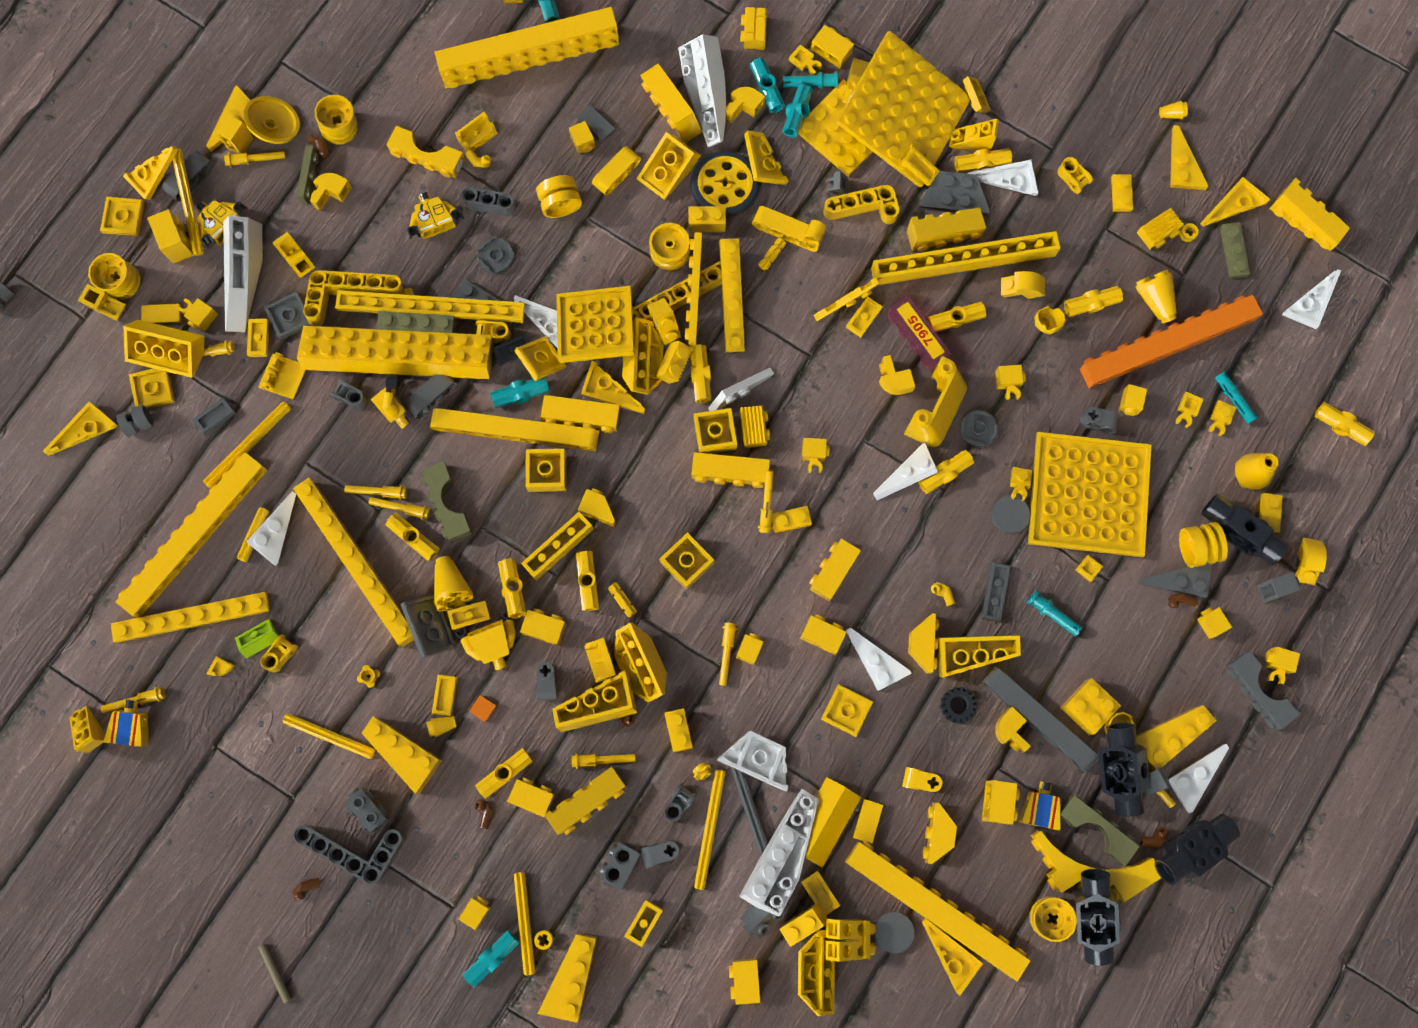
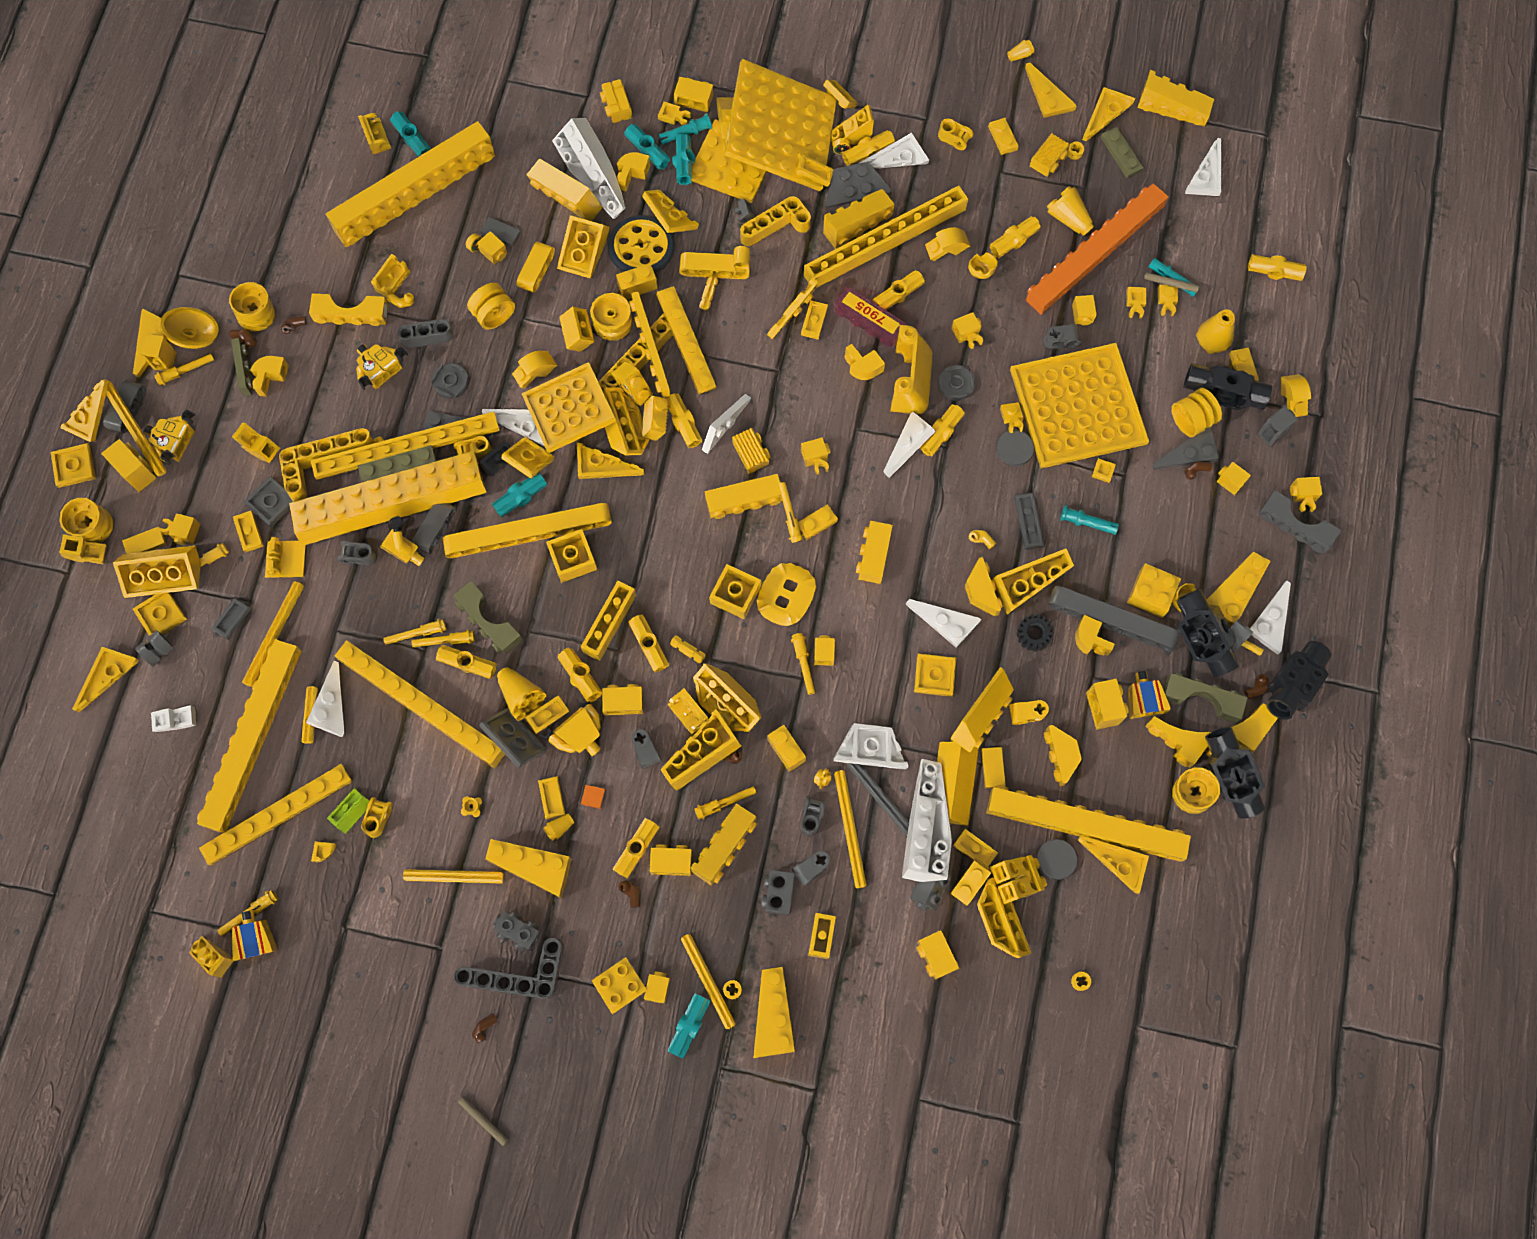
camera: 20 degrees left, 5 degrees down
(130, 493) = (173, 719): none -> white slope
(241, 269) = (208, 472): white wedge -> none
(369, 147) = (291, 323): none -> reddish brown arm
(440, 897) = (619, 985): none -> yellow hinge
(564, 125) = (471, 243): none -> yellow tile
(578, 269) = (533, 365): none -> yellow brick
(580, 413) = (585, 493): yellow brick -> none
(596, 507) = (633, 573): yellow slope -> none
(632, 247) = (576, 329): none -> yellow brick
(715, 431) = (717, 466): yellow brick -> none
(745, 589) = (798, 600): none -> yellow piece
(823, 634) = (887, 613): yellow brick -> none
(876, 767) = (983, 712): none -> yellow slope
(957, 149) = (841, 145): none -> tile
(1231, 402) = (1171, 282): none -> dark tan bar

